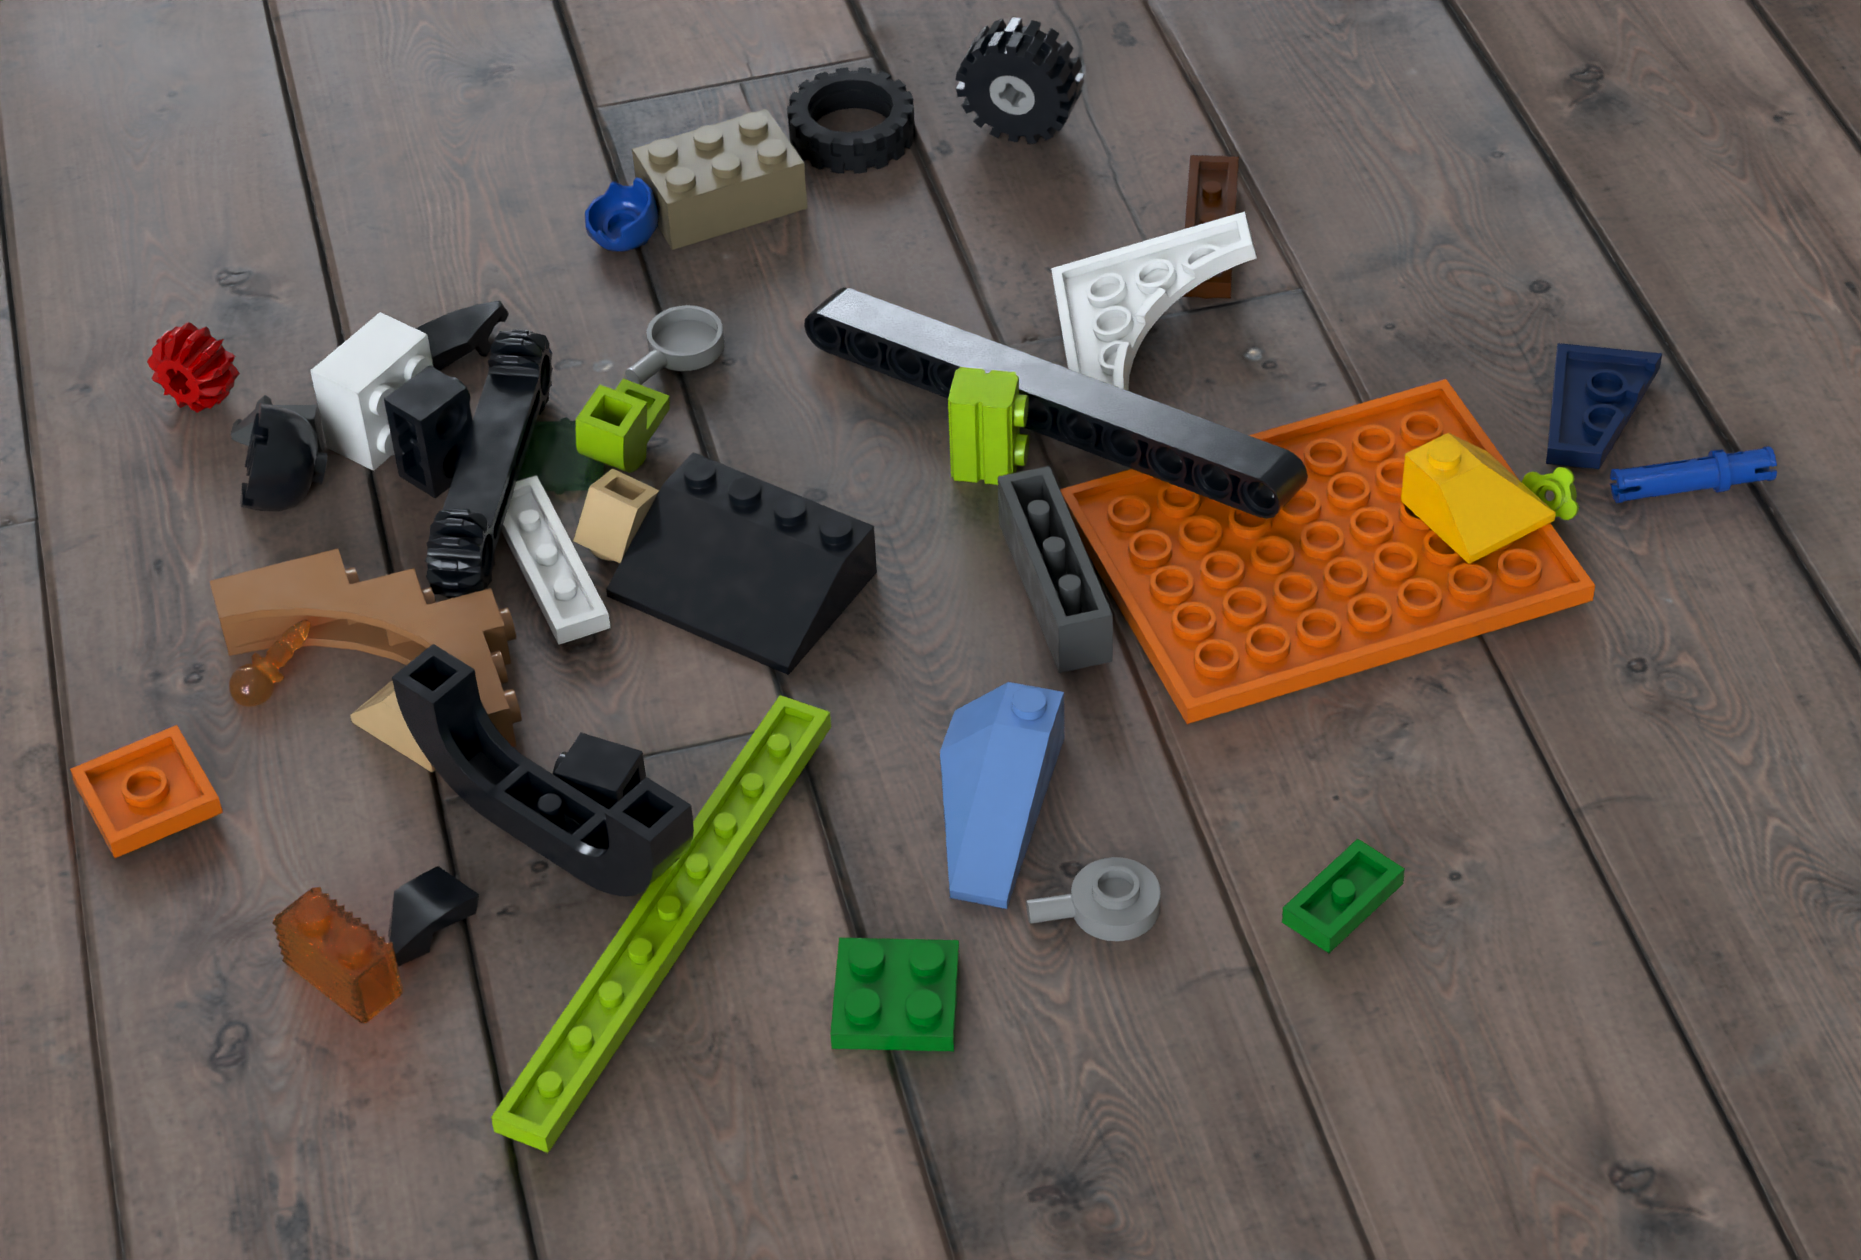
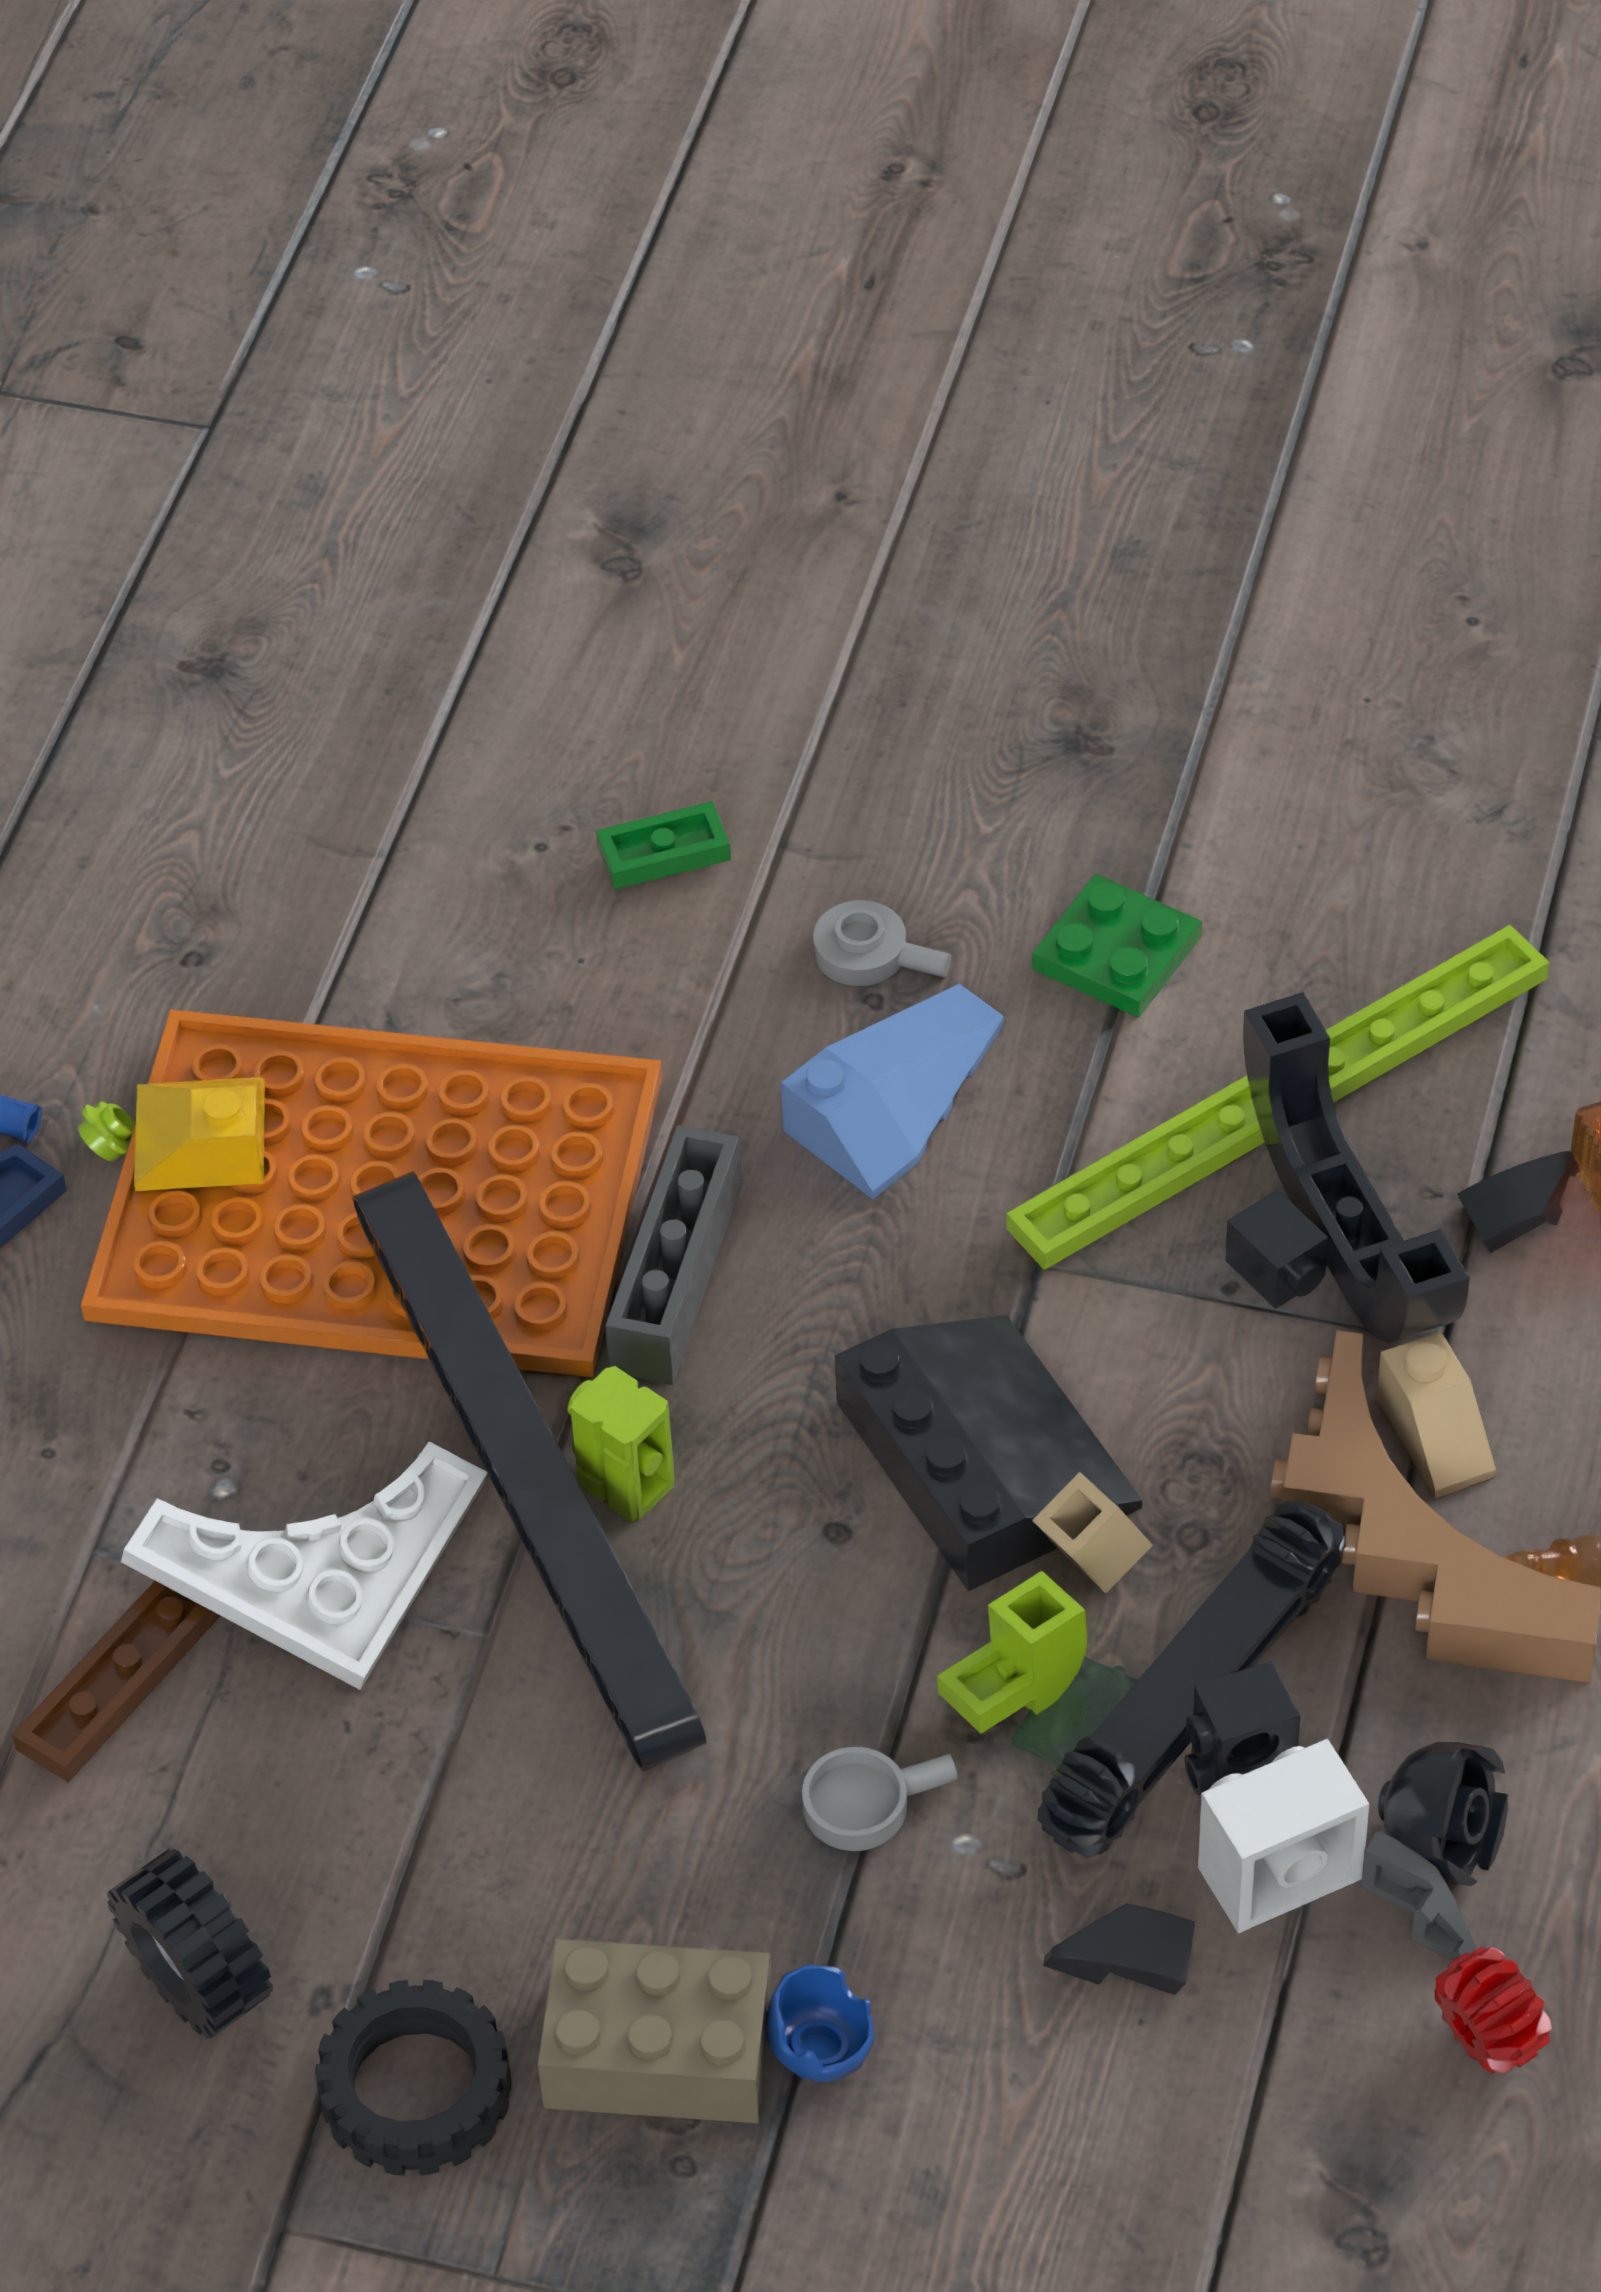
camera: 150 degrees left, 5 degrees up
(552, 564) = (1188, 1533): white plate -> none

